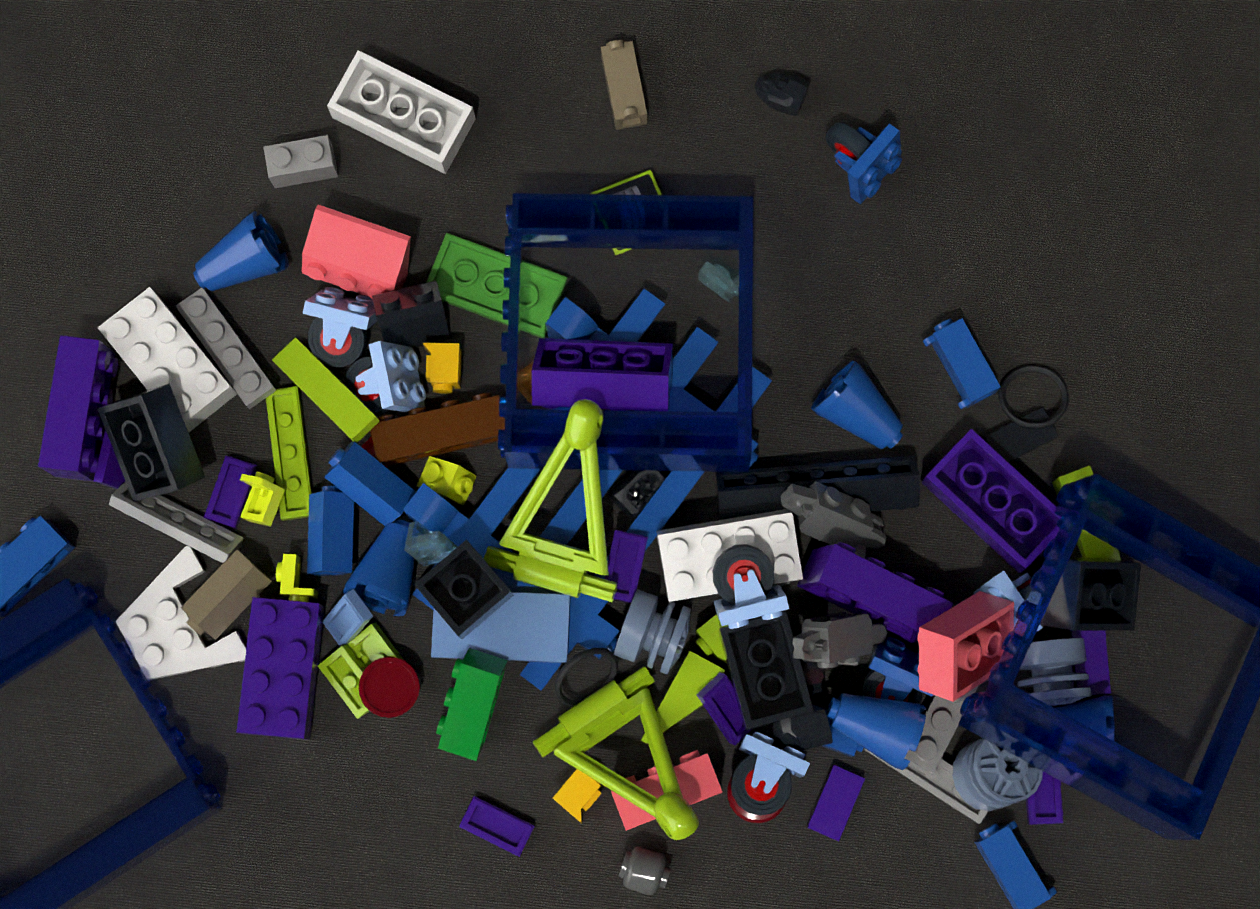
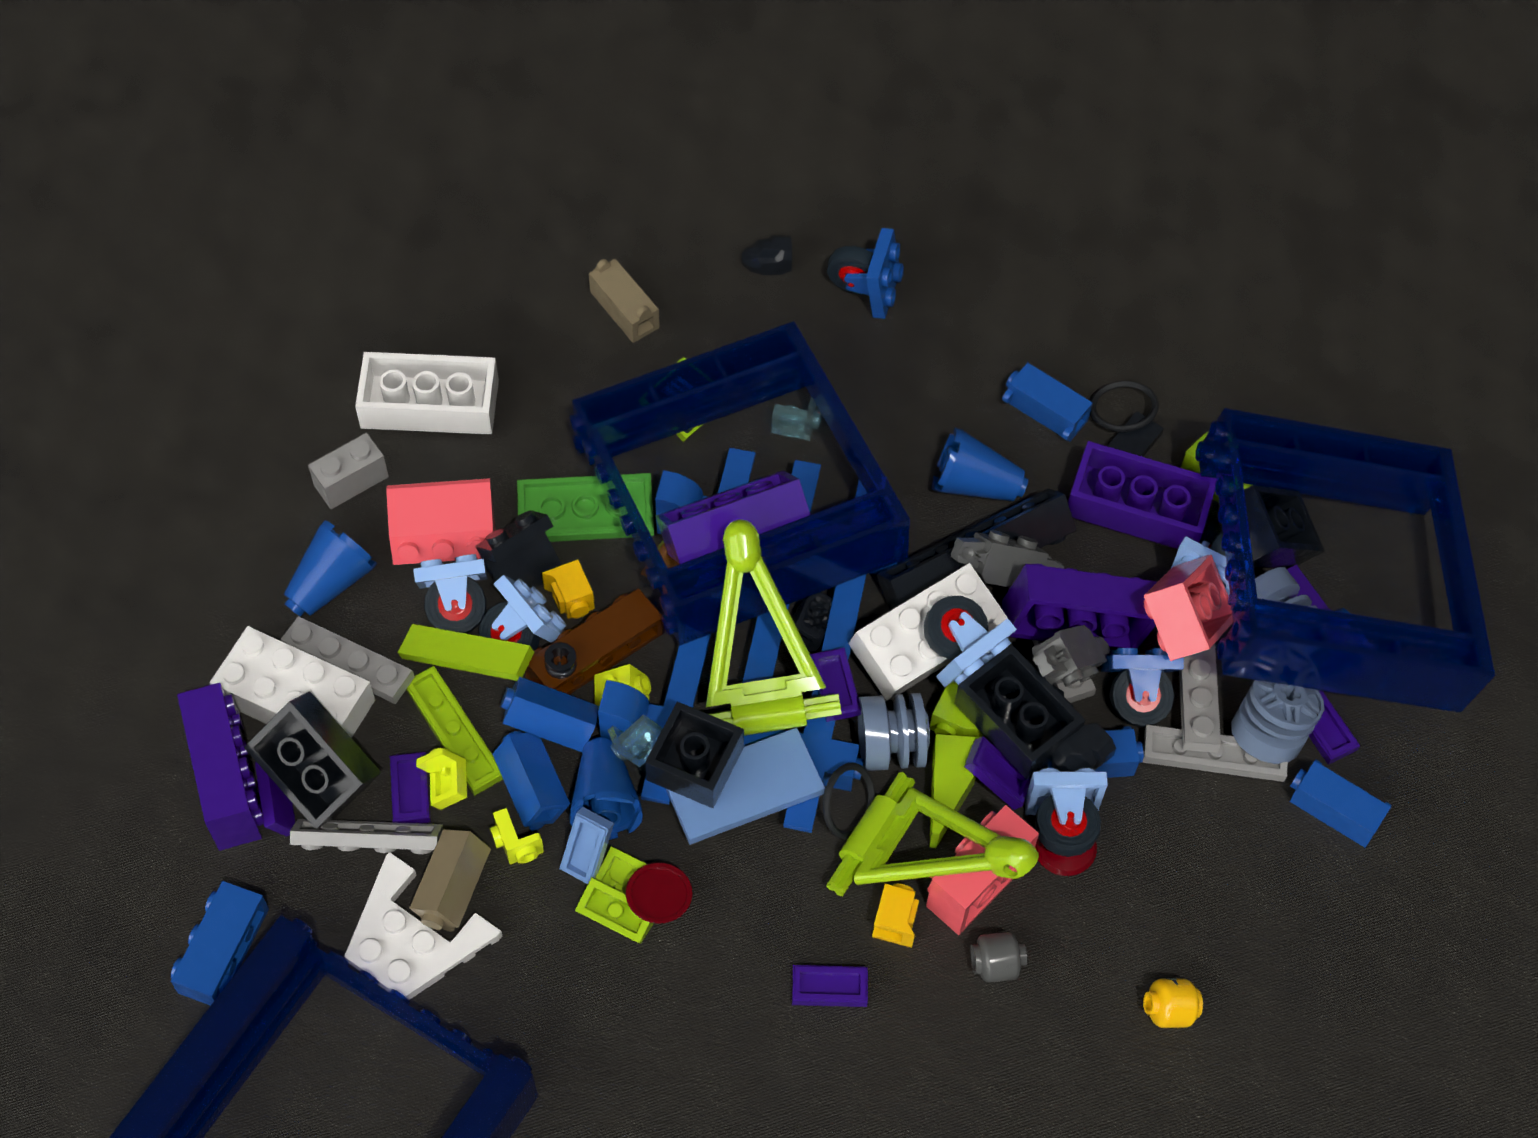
camera: 30 degrees left, 20 degrees down
(280, 668) = (540, 926): dark purple brick -> none
(387, 436) = (558, 671): none -> black bush
(471, 703) = (750, 868): green brick -> none
(835, 803) = (1144, 820): dark purple tile -> none
(879, 725) = (1152, 715): blue cone -> none

